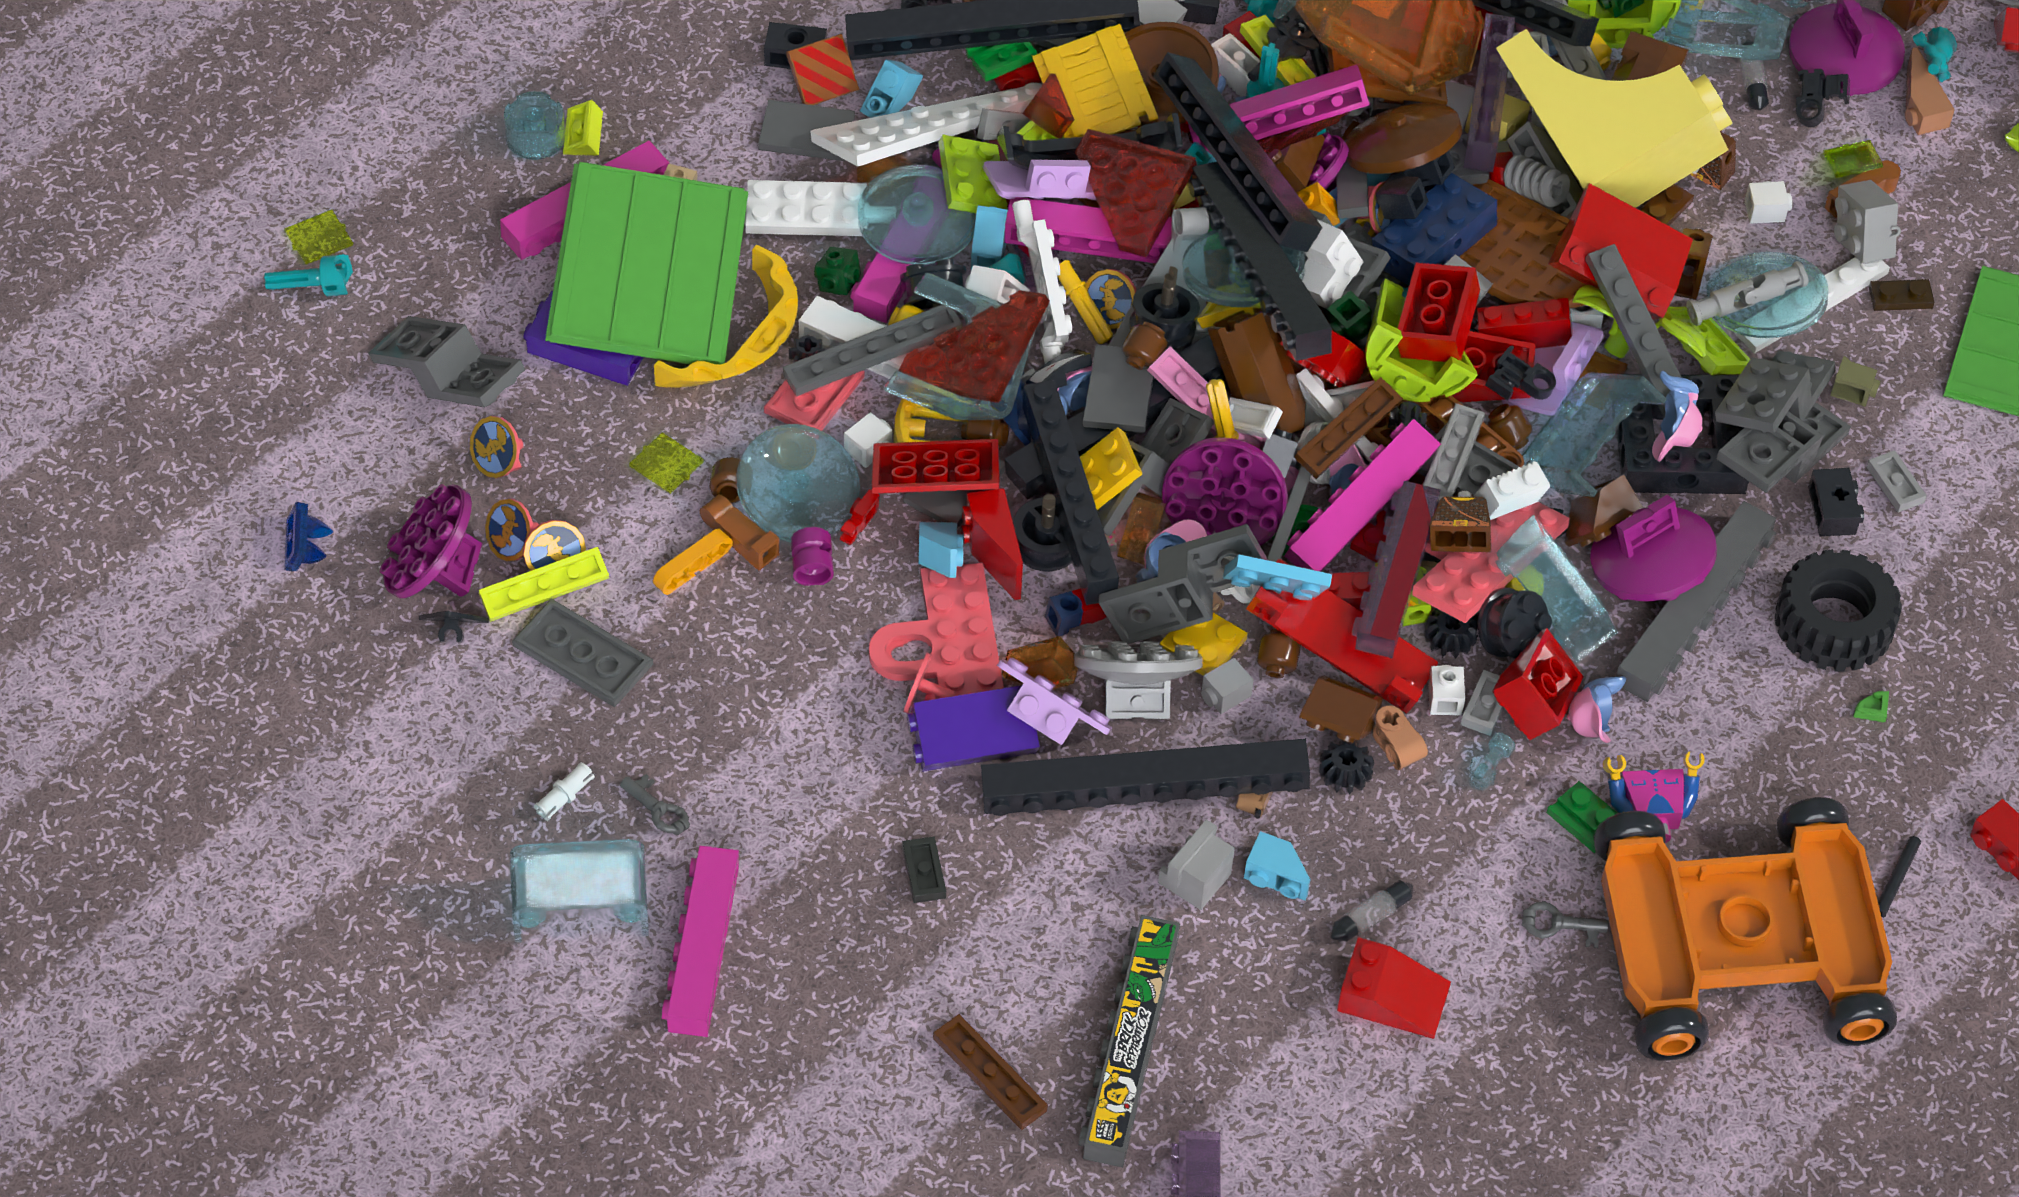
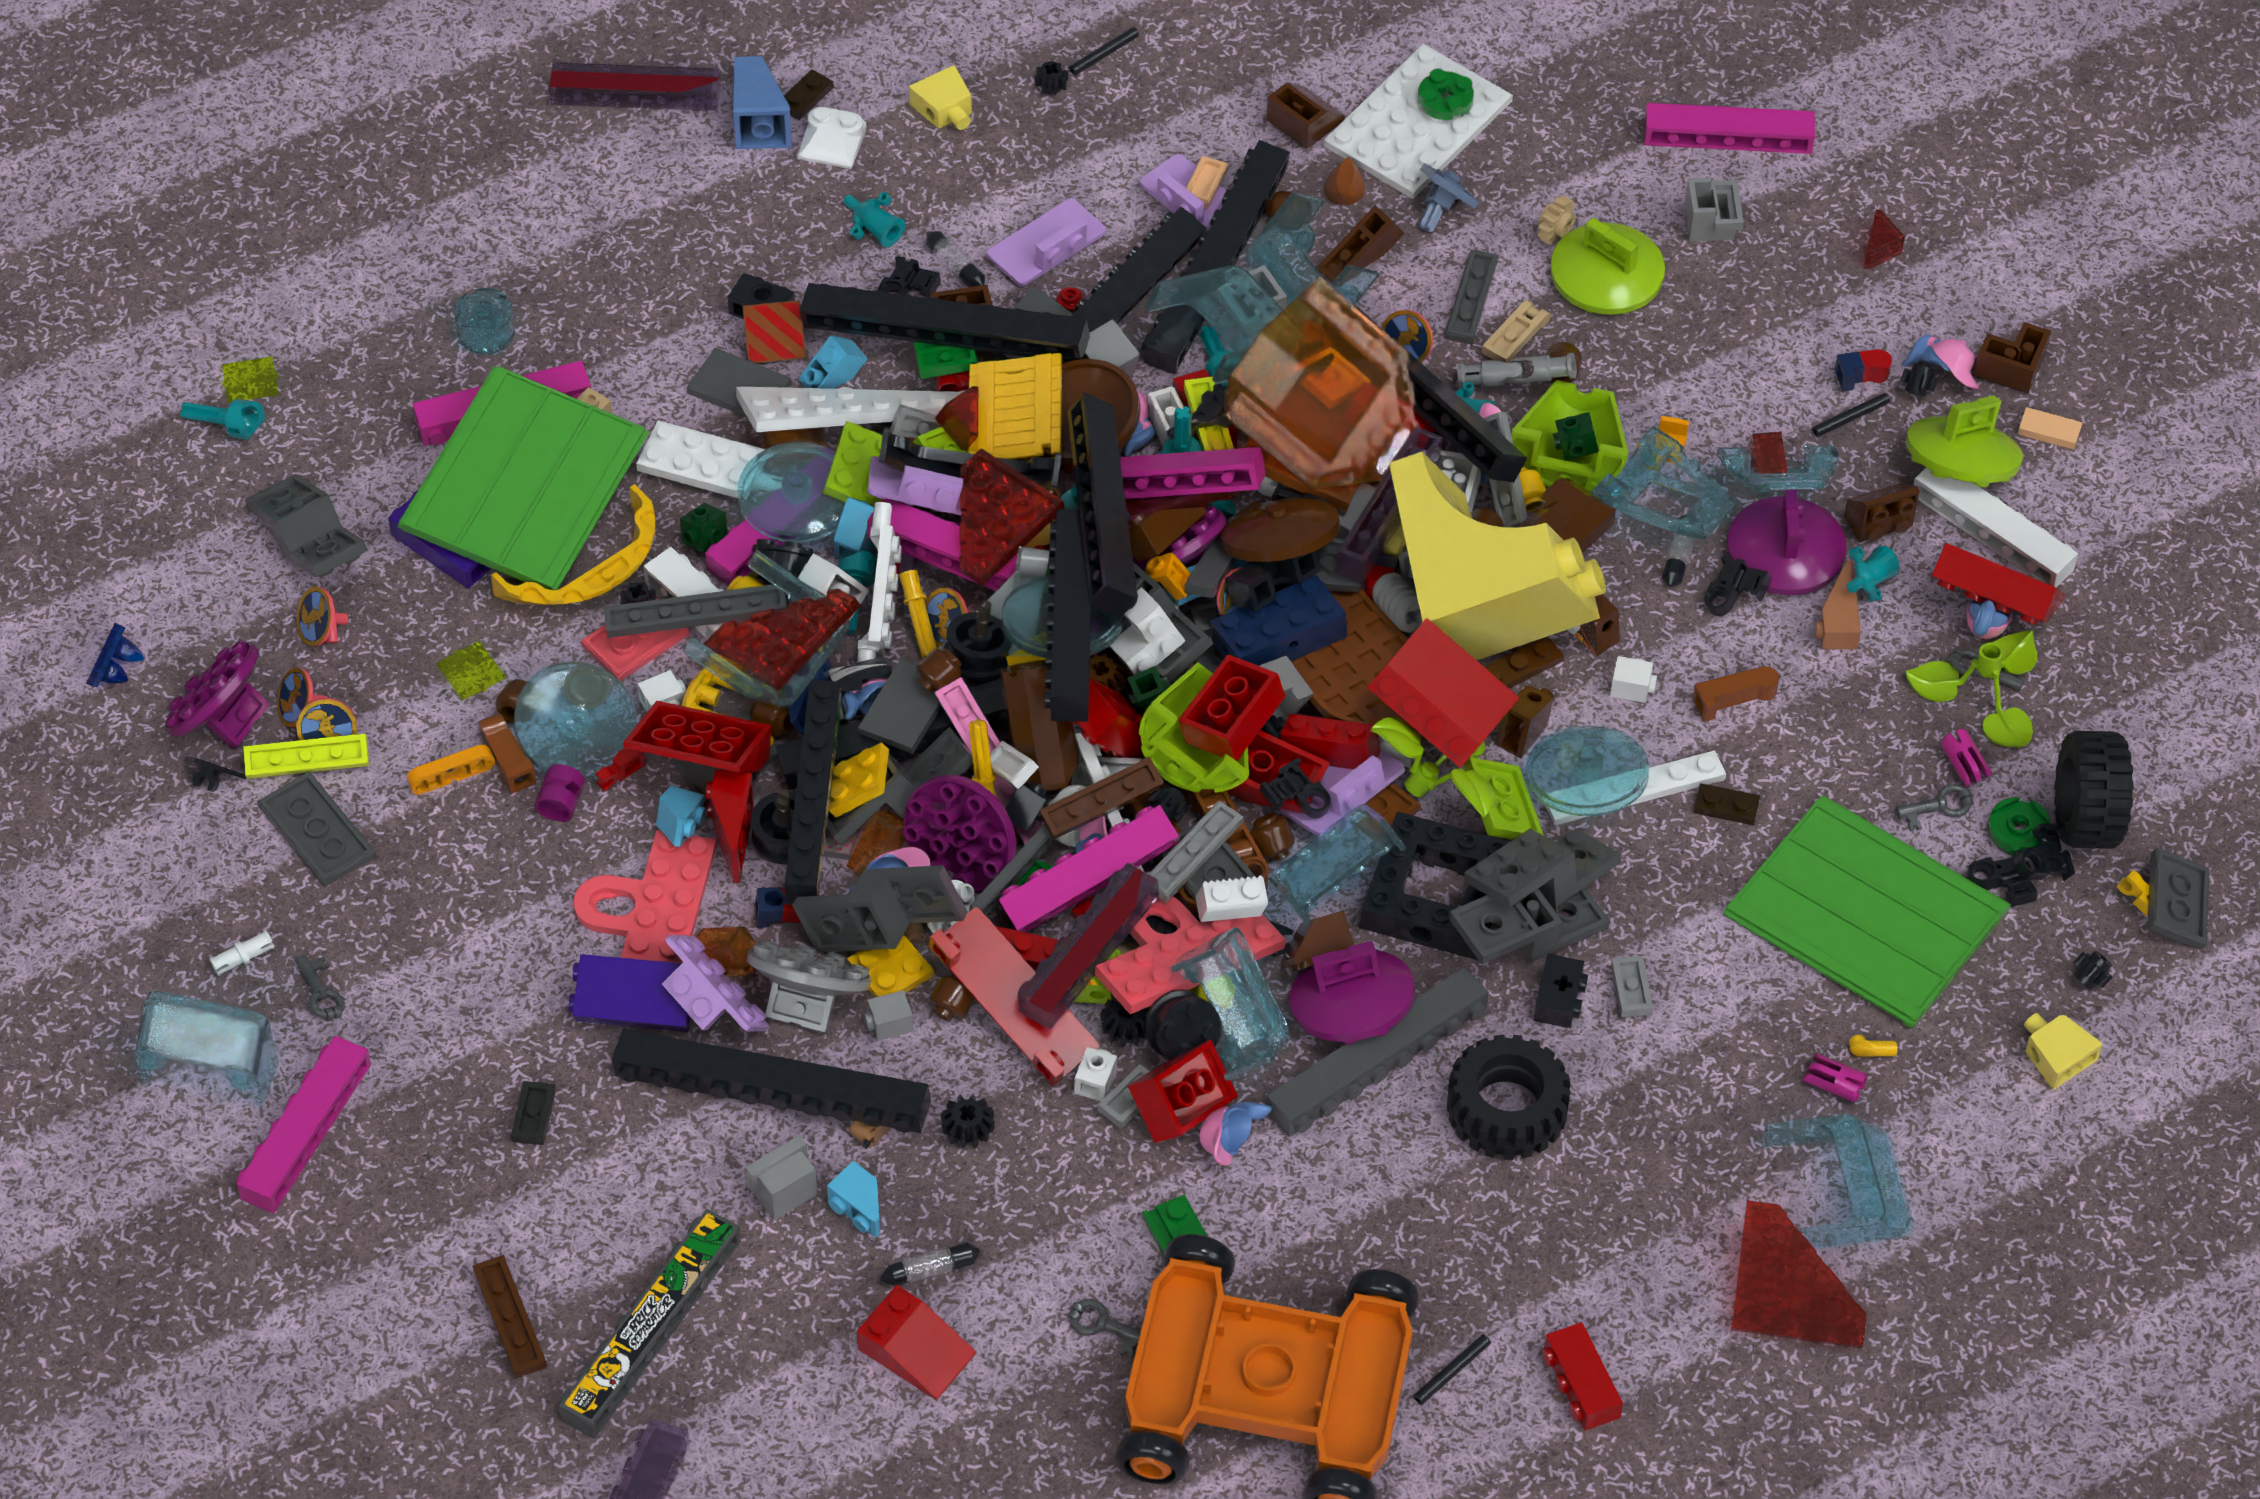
camera: 20 degrees right, 0 degrees up
(583, 129) = (533, 335): neon yellow slope -> none
(932, 690) = (601, 937): coral shield -> none
(1276, 577) = (957, 924): medium azure plate -> none
(1341, 709) = (982, 1065): reddish brown slope -> none
(1398, 738) = (1028, 1109): nougat piece -> none
(1461, 524) = (1166, 918): reddish brown torso -> none
(1484, 770) = (1096, 1160): clear light blue leg -> none
(1632, 317) = (1422, 776): dark grey plate -> none
(1660, 792) = (1249, 1228): torso -> none
(1682, 416) = (1429, 871): hair -> none
(1757, 289) = (1569, 762): light grey piece -> none
(1852, 158) = (1738, 657): clear neon green piece -> none
(1855, 382) = (1635, 879): olive window -> none
(1866, 221) = (1712, 722): light grey brick -> none
(1873, 707) = (1506, 1200): bright green tile -> none

